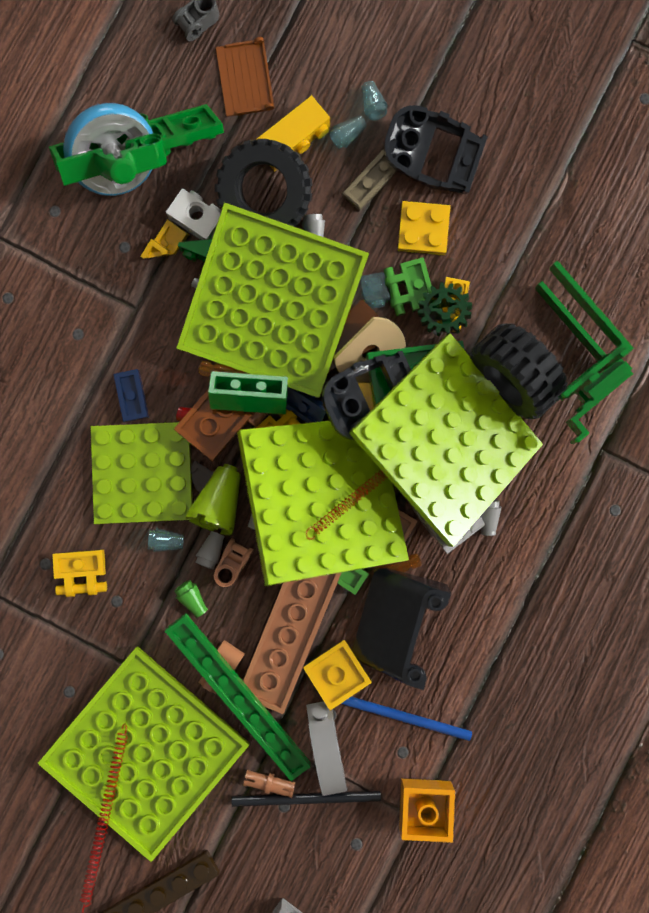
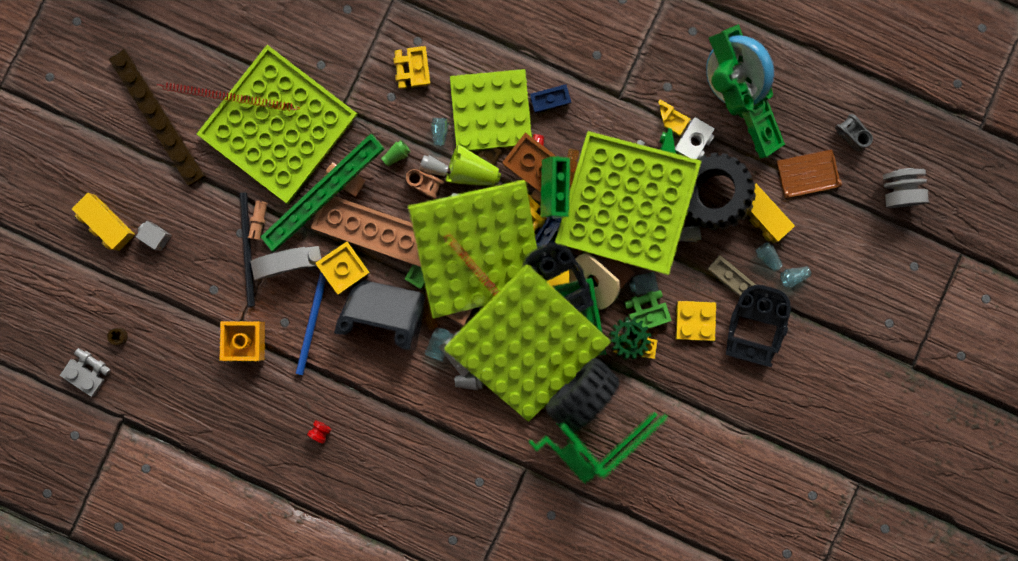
camera: 90 degrees right, 0 degrees up
(434, 553) = (438, 338): none -> clear light blue bracket
(546, 713) = (319, 431): none -> red wheel

